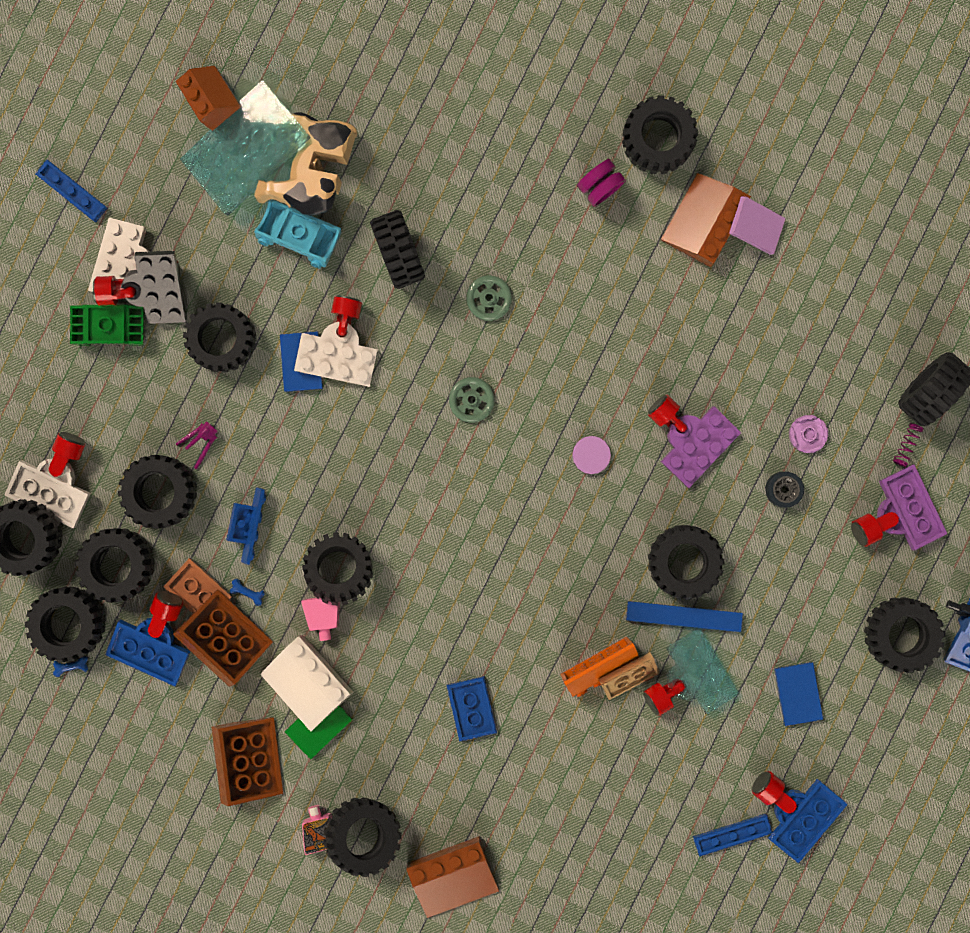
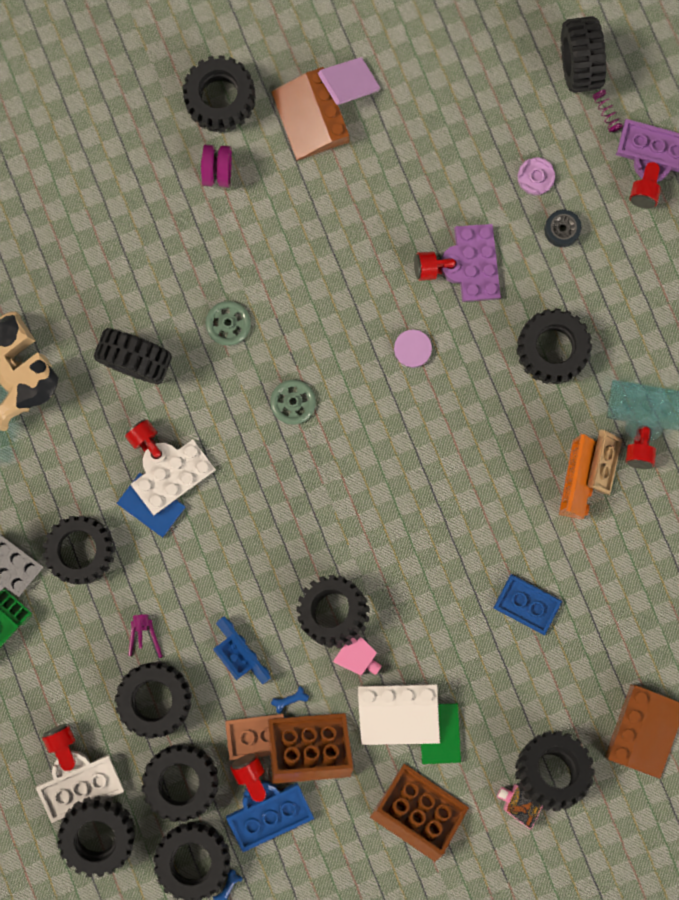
camera: 50 degrees left, 5 degrees down
(298, 233) = (52, 421): medium azure piece -> none
(684, 616) = (594, 384): blue tile -> none

